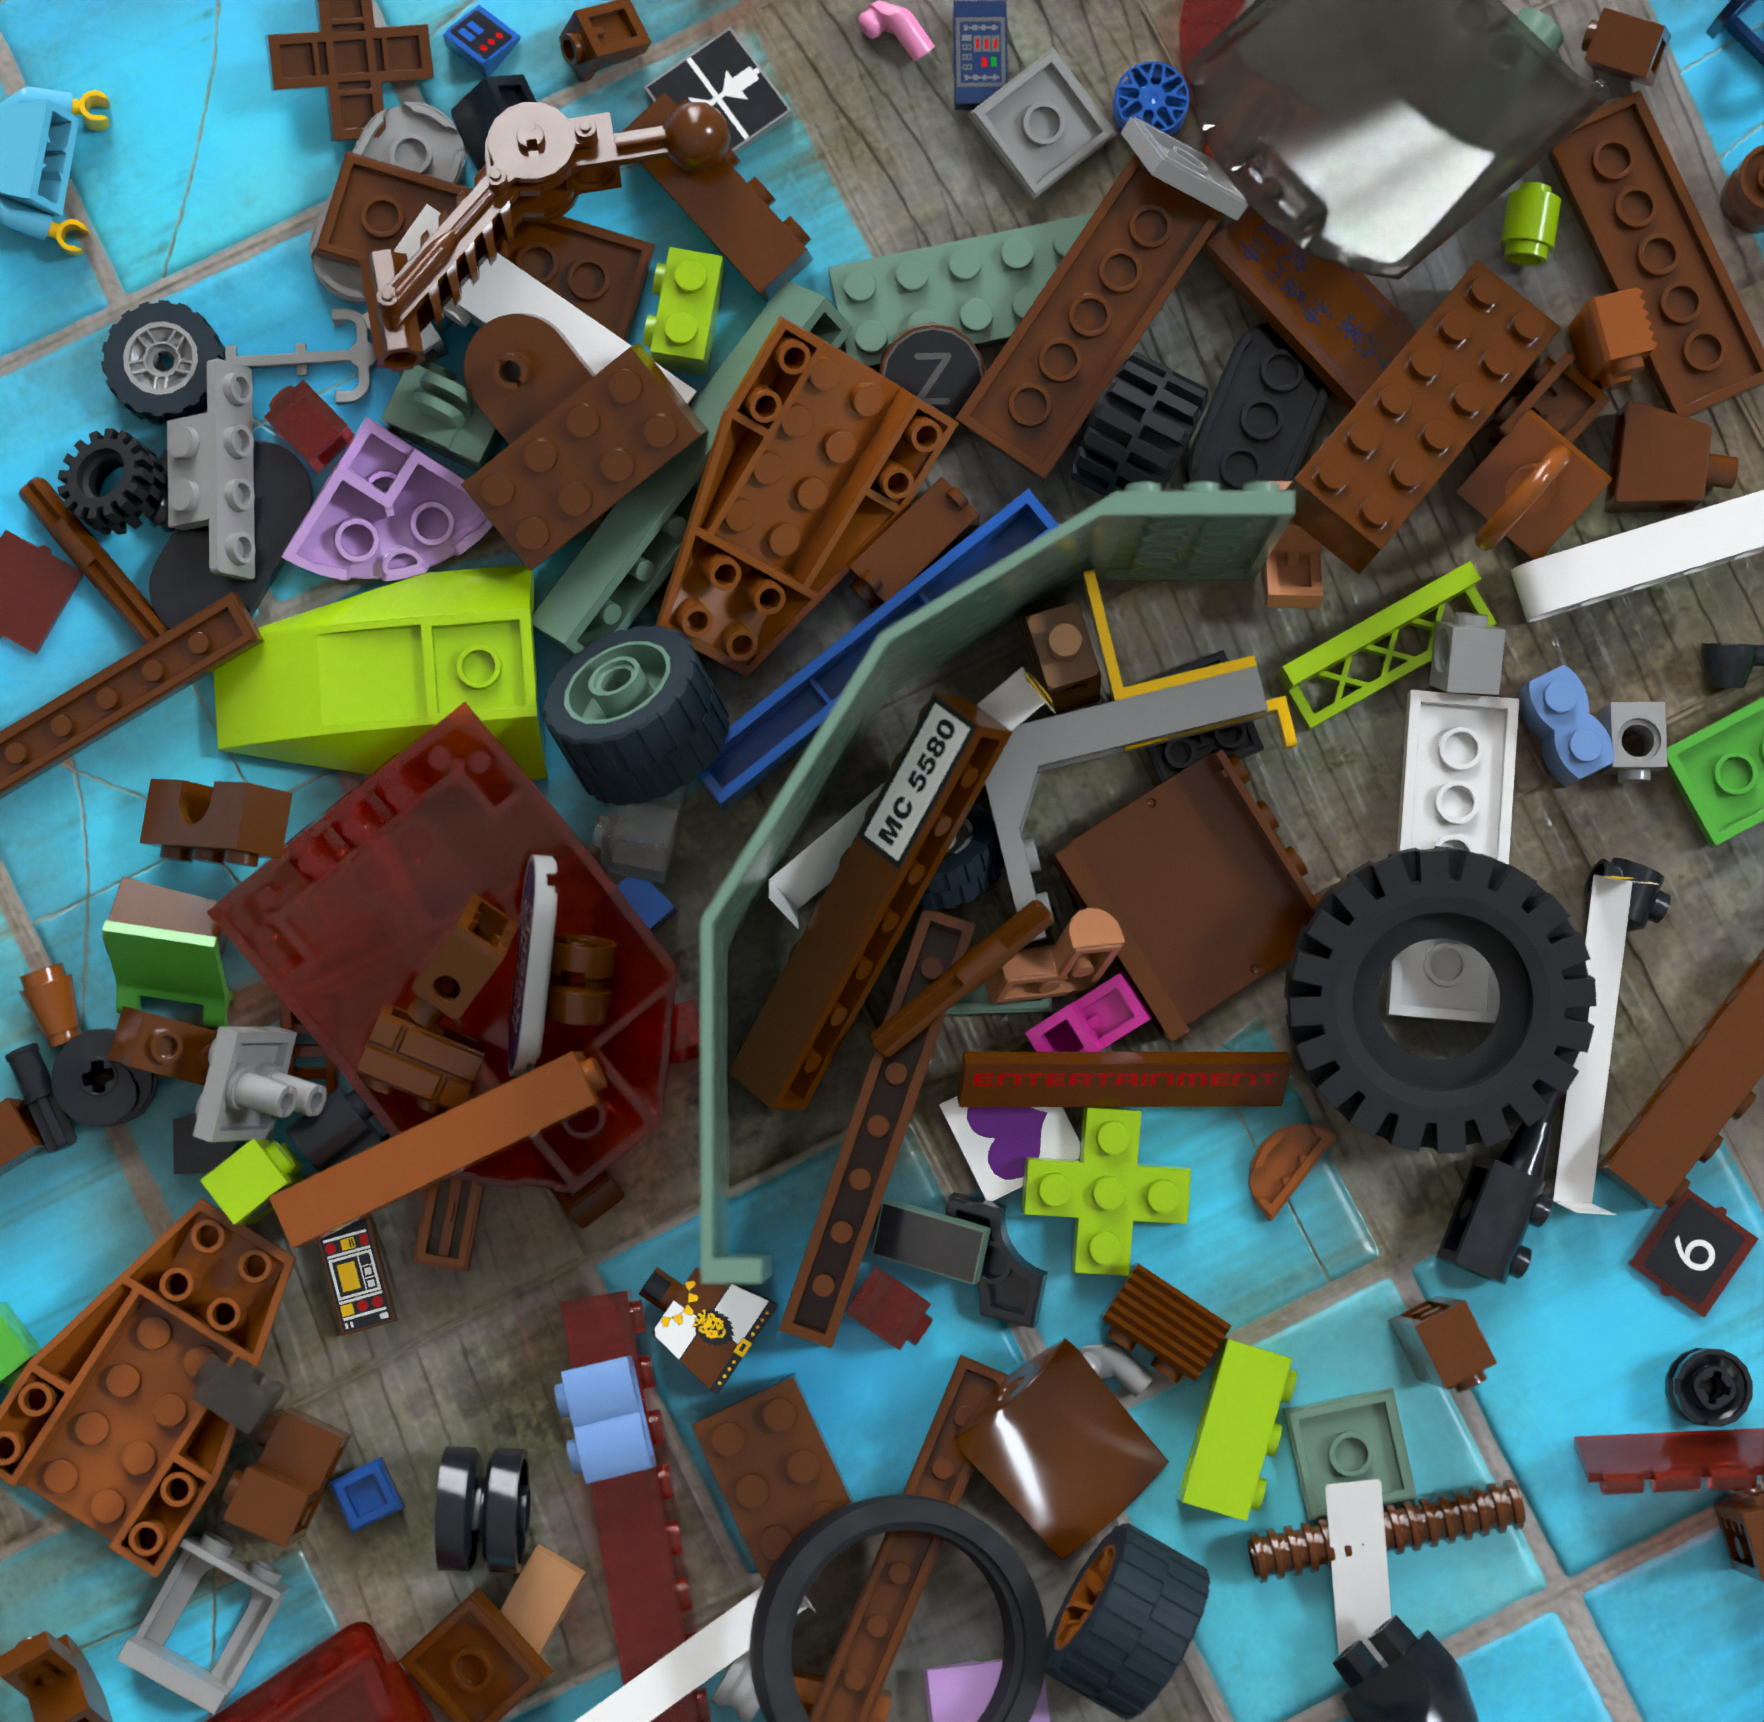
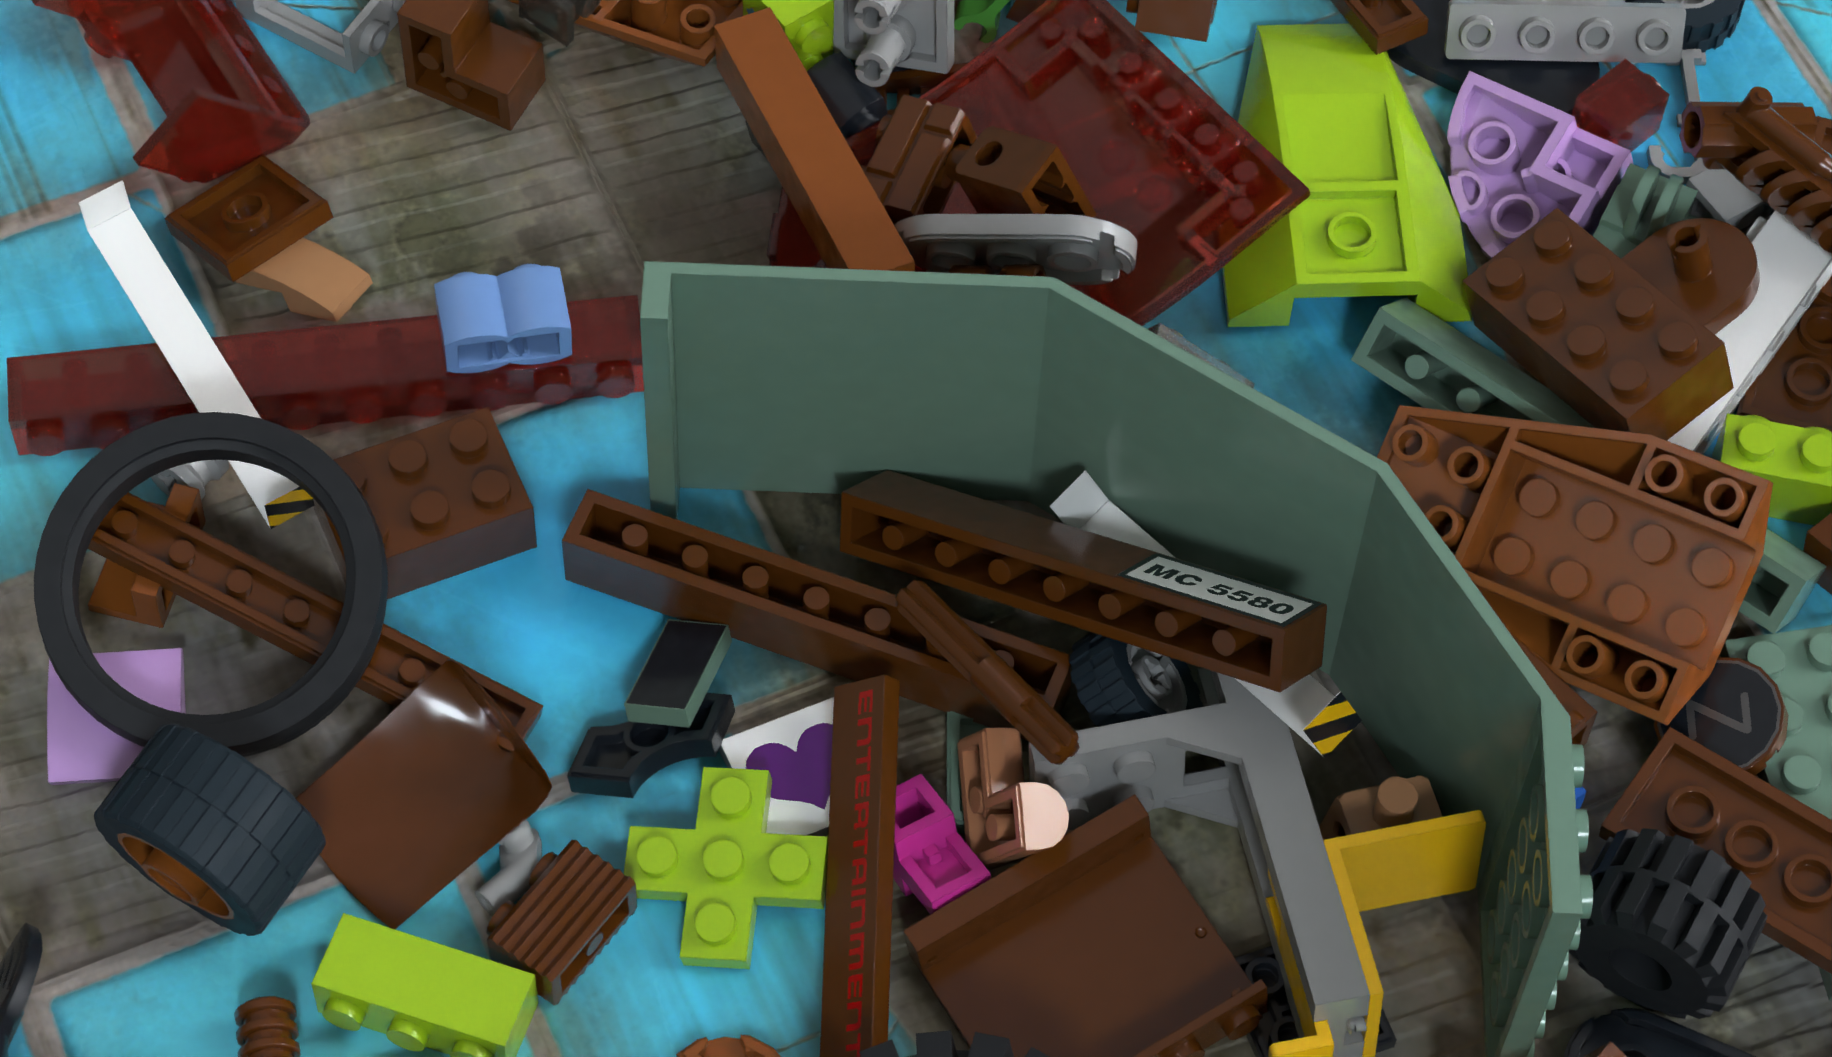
camera: 90 degrees right, 25 degrees down
(357, 1277) = (682, 134): tile -> none
(367, 1494) = (444, 137): blue tile -> none
(443, 1257) = (727, 231): dark orange tile -> none
(482, 1509) = (416, 212): black wheel -> none
(636, 715) = (1306, 354): black wheel -> none
(707, 1323) = (591, 444): torso -> none
(890, 1309) = (603, 629): clear red brick -> none

